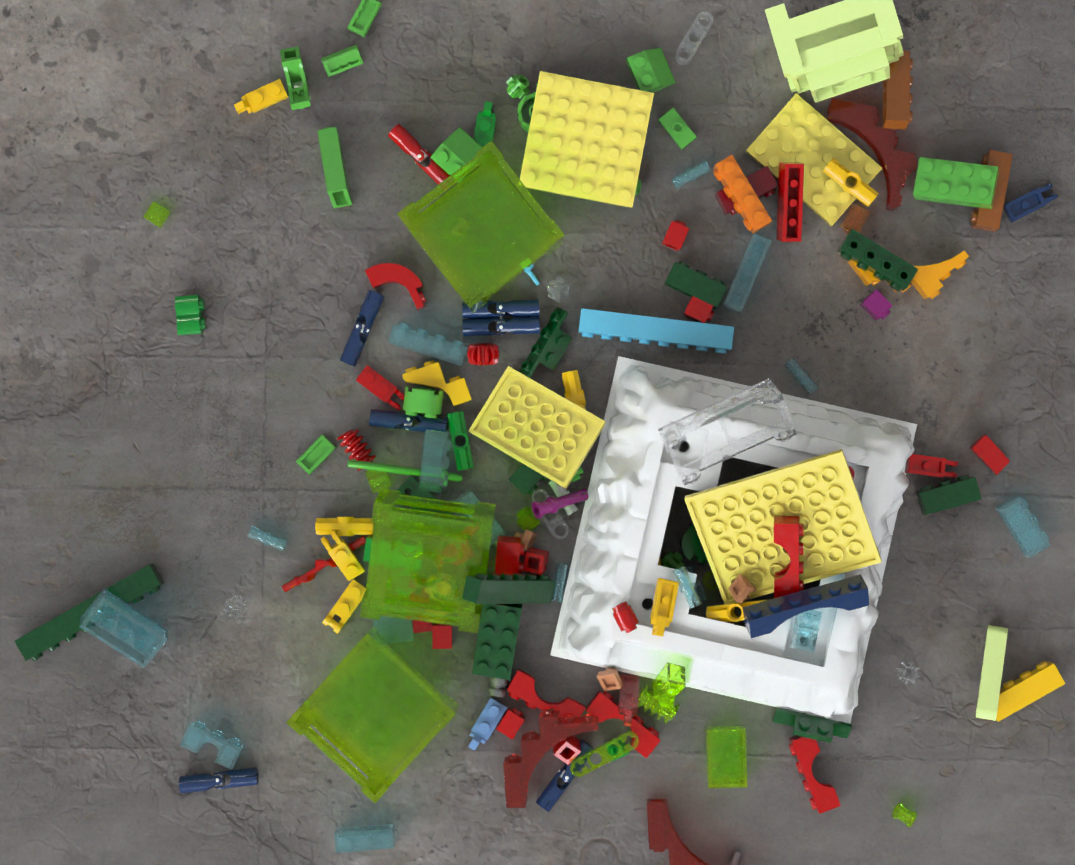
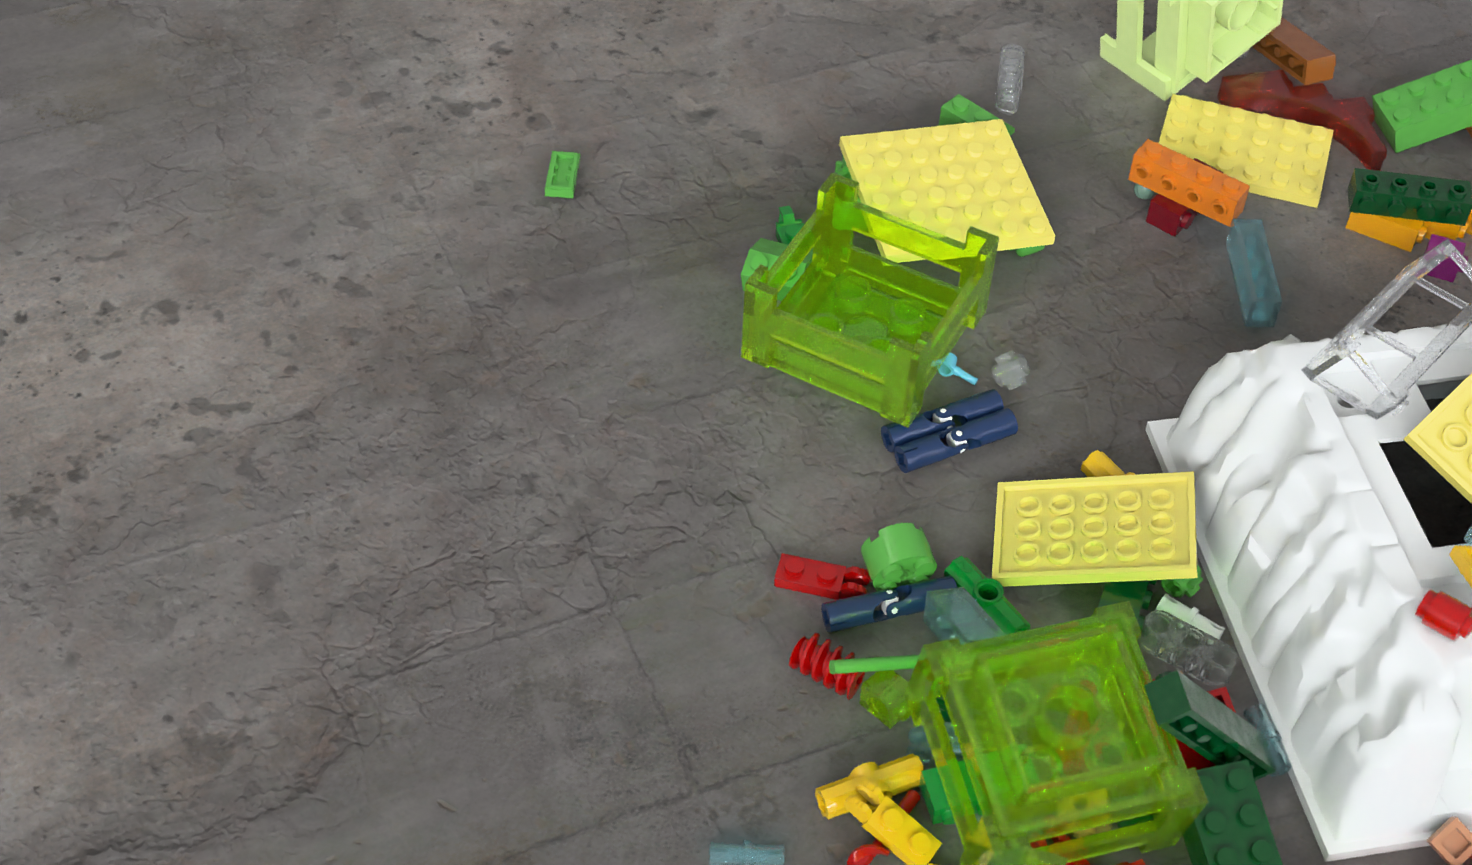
camera: 25 degrees left, 40 degrees down
(157, 214) = (351, 475): clear neon green plate -> none
(189, 315) = (462, 580): green brick -> none
(262, 97) = (456, 298): yellow hinge -> none
(296, 78) = (496, 256): bright green arch -> none
(316, 454) = (763, 704): bright green tile -> none
(334, 167) = (608, 334): bright green slope -> none
(342, 60) = (555, 224): bright green plate -> none
(356, 339) = (748, 510): dark blue piece -> none
(394, 273) = (771, 427): red arch -> none
(412, 147) = (706, 284): red piece -> none
(427, 345) = (863, 494): clear light blue brick -> none
(432, 376) = (944, 533): yellow arch -> none
(483, 354) = (953, 473): red gear -> none
(517, 86) = (812, 179): bright green gear -> none
(527, 519) = (1160, 660): clear neon green gear -> none
(549, 346) = (1040, 438): dark green bracket -> none
(552, 504) = (1189, 616): magenta pin -> none
(655, 329) = (1147, 378): medium azure brick -> none
(675, 235) = (1128, 268): red brick -> none
(677, 128) = (1051, 169): bright green plate -> none
(691, 174) = (1101, 204): clear light blue pin -> none
(695, 284) = (1194, 310): dark green brick -> none
(698, 310) = (1219, 334): red brick -> none
(790, 201) = (1242, 159): red brick -> none
(854, 218) = (1337, 183): clear orange brick -> none
(860, 190) = (1310, 141): yellow piece -> none

